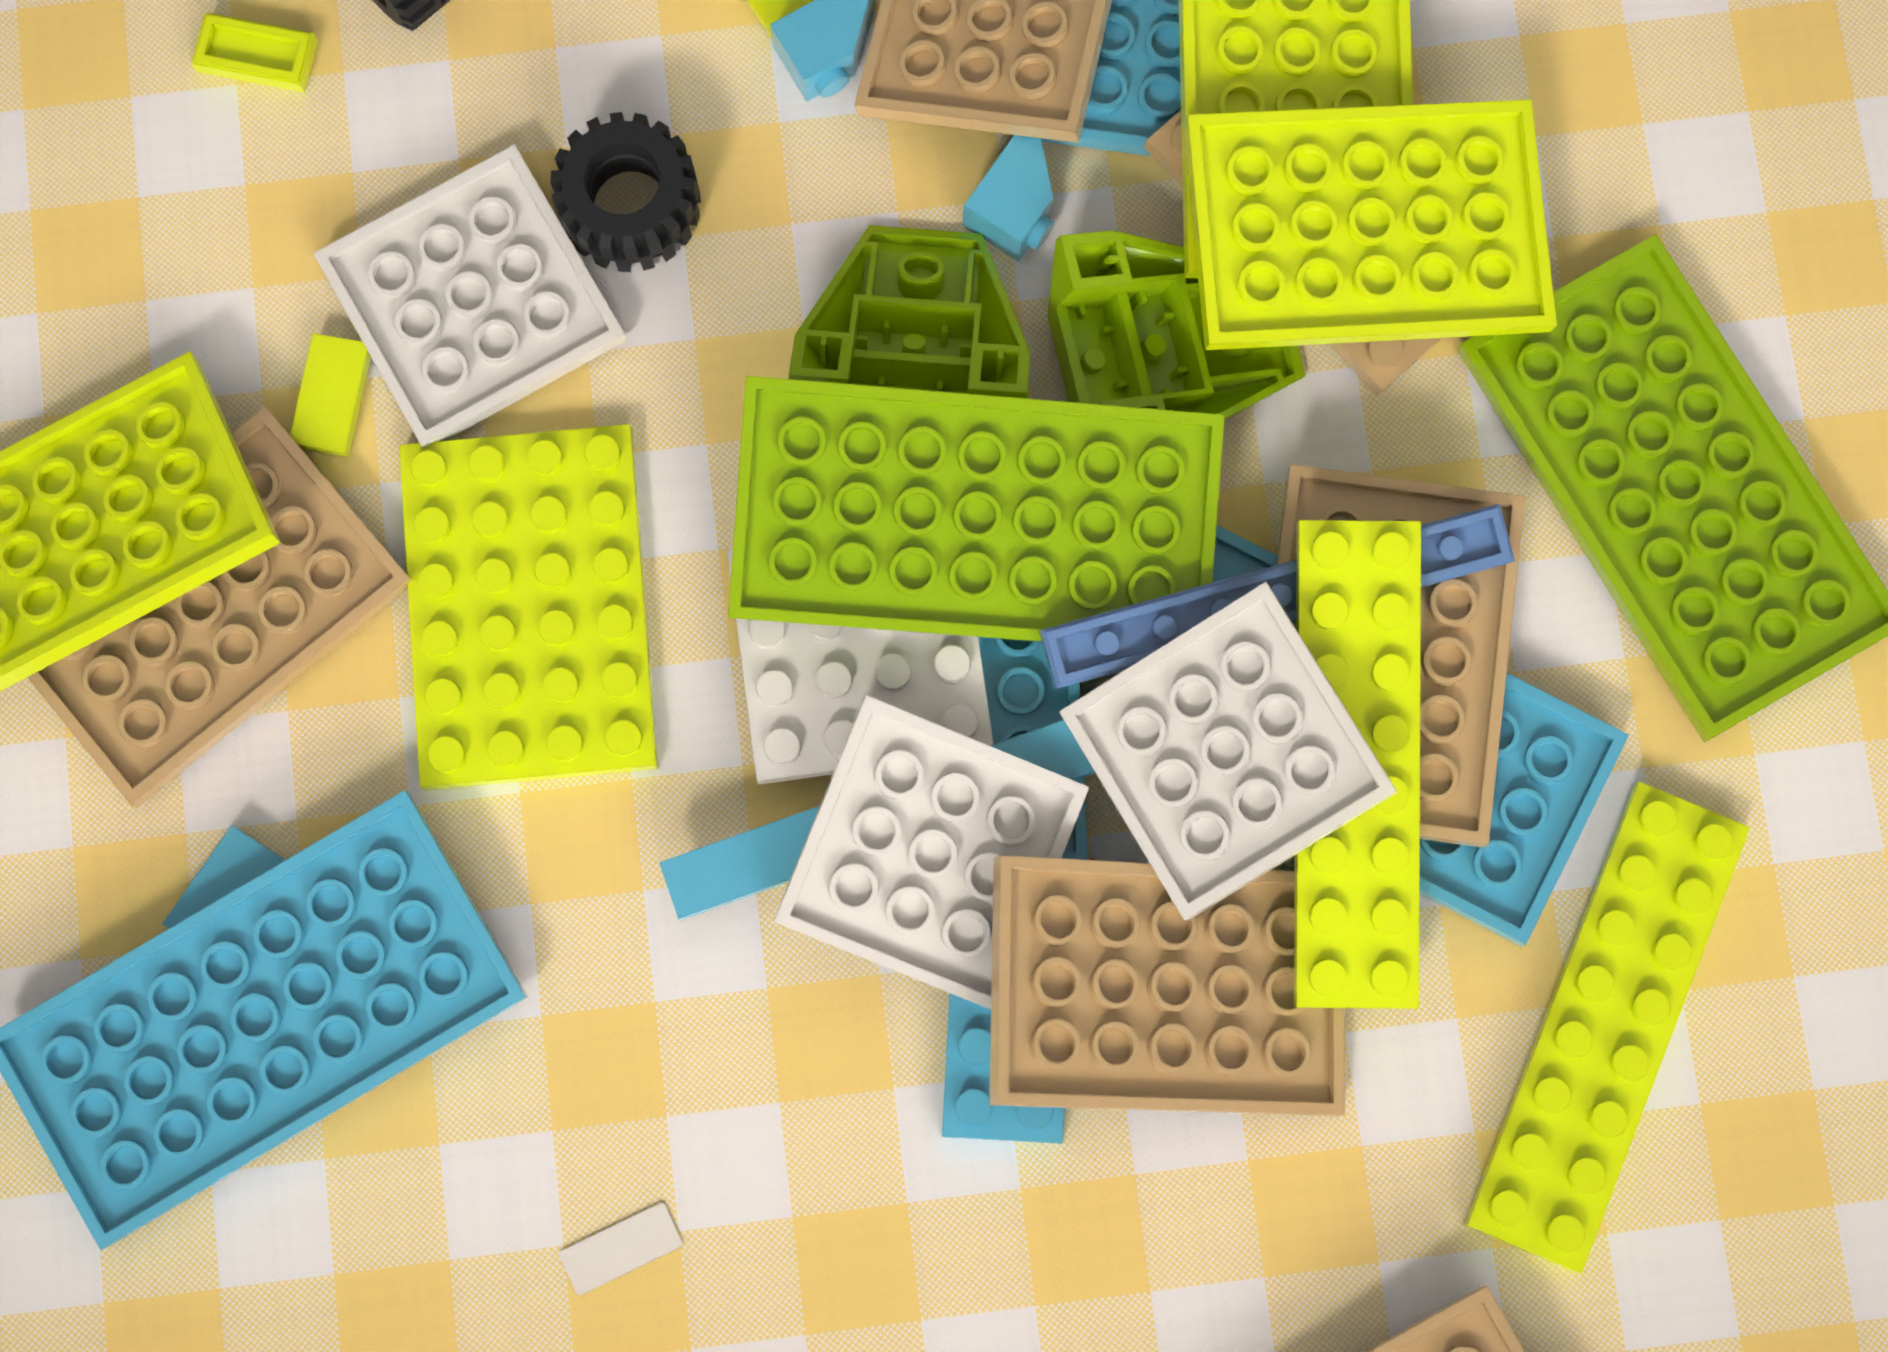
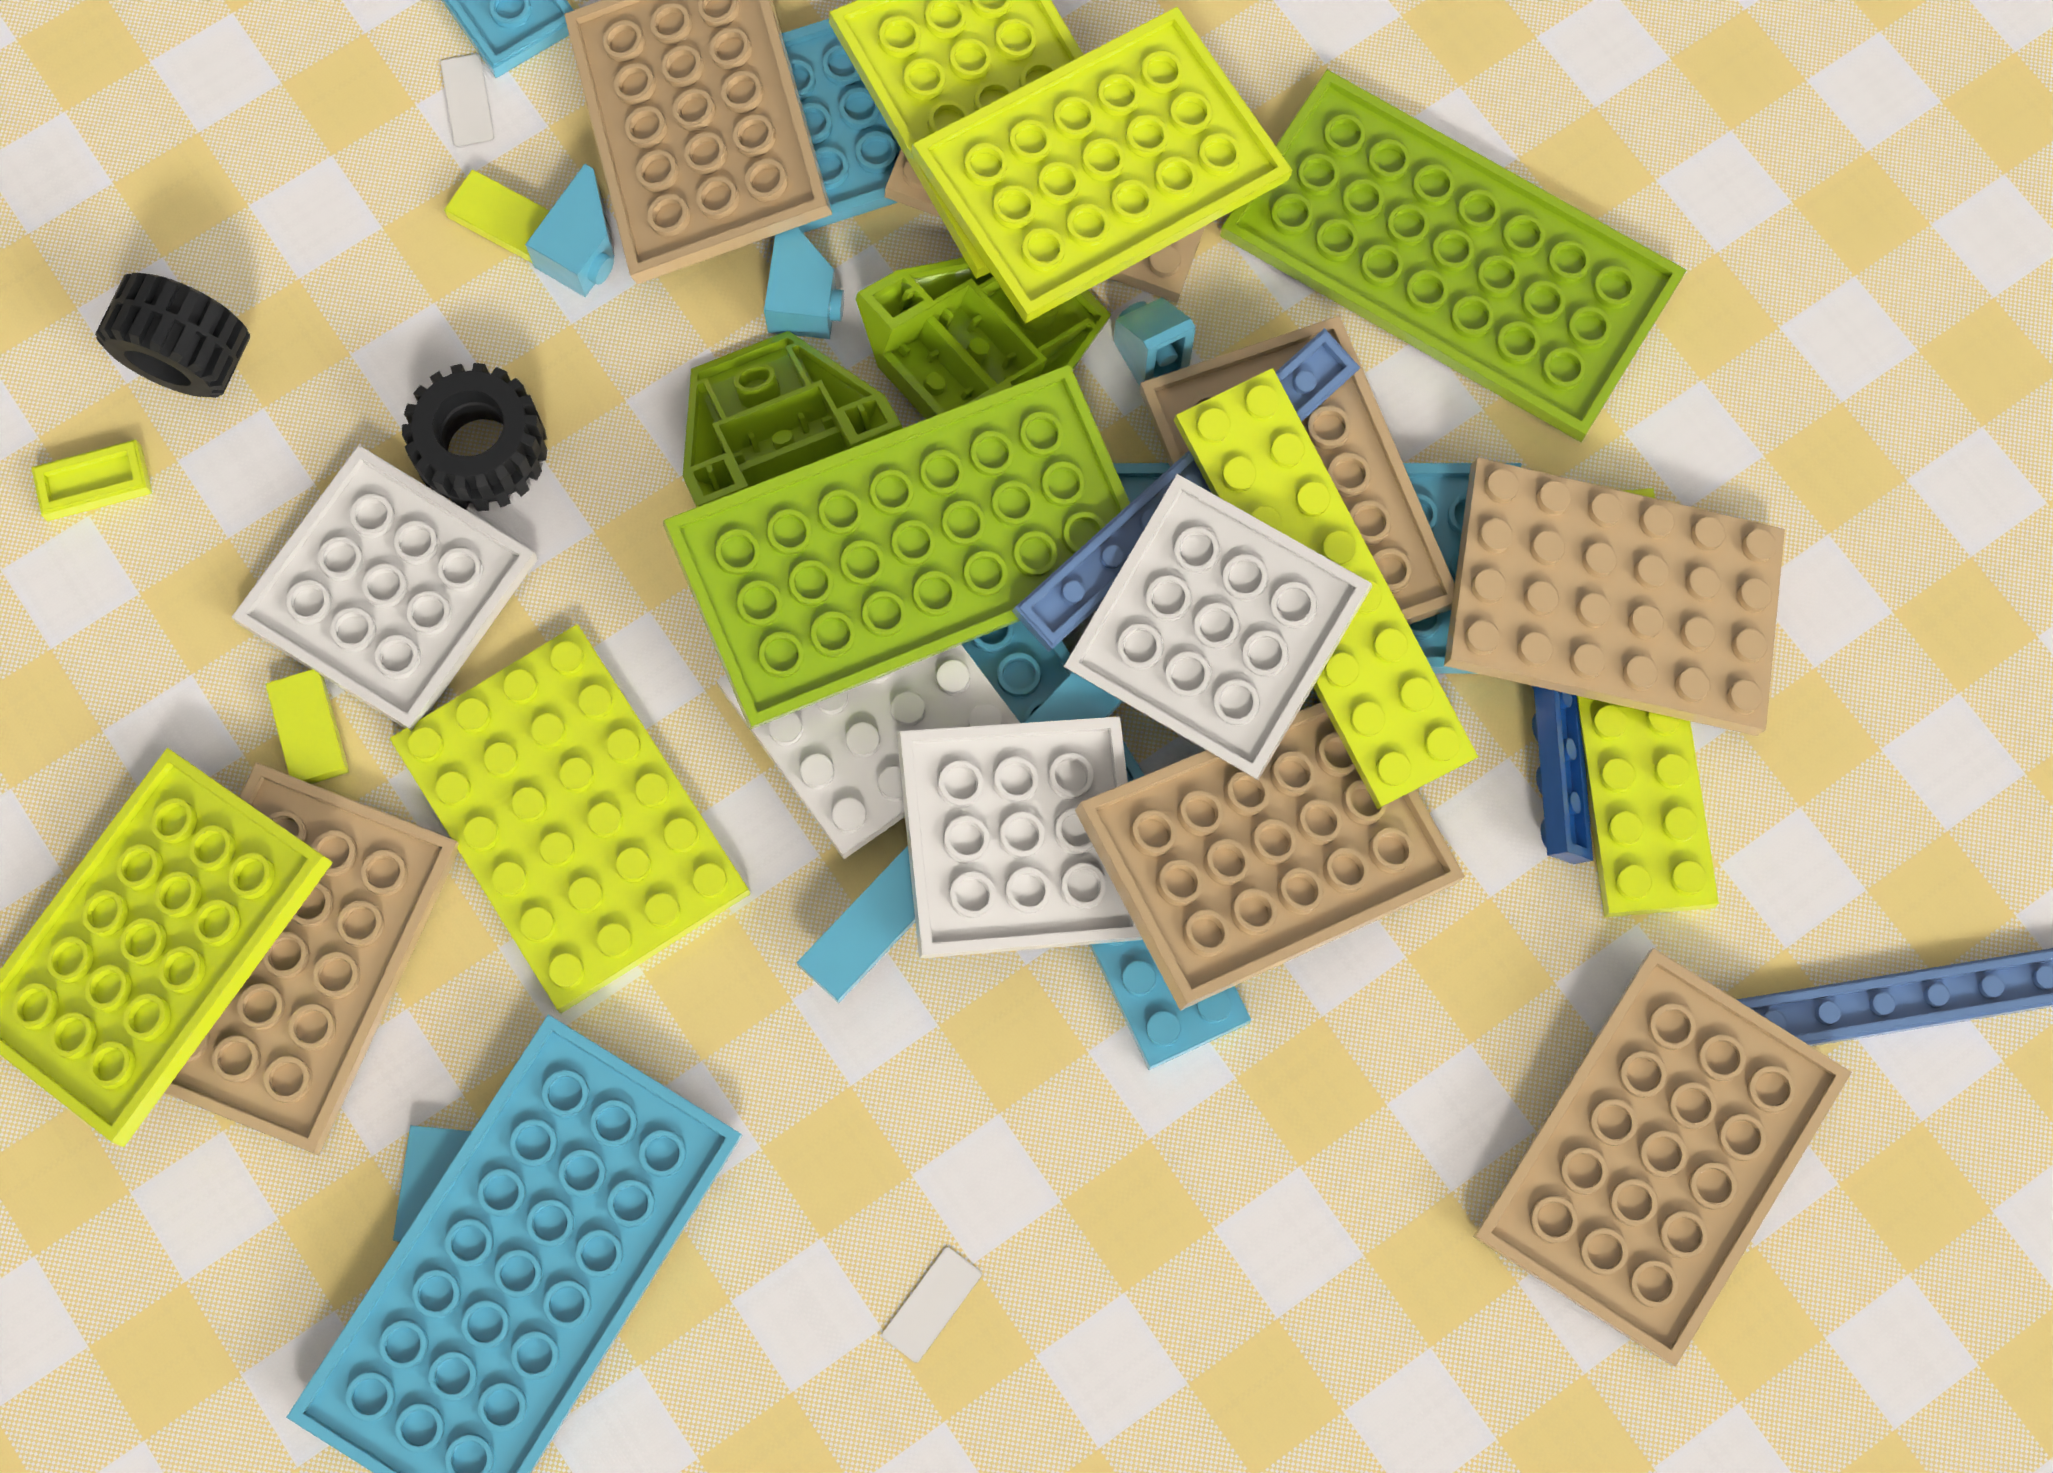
camera: 30 degrees left, 5 degrees down
(1330, 425) = (1154, 339): none -> medium azure slope
(1507, 1044) = (1562, 777): none -> blue plate
(1647, 920) = (1616, 597): none -> tan plate

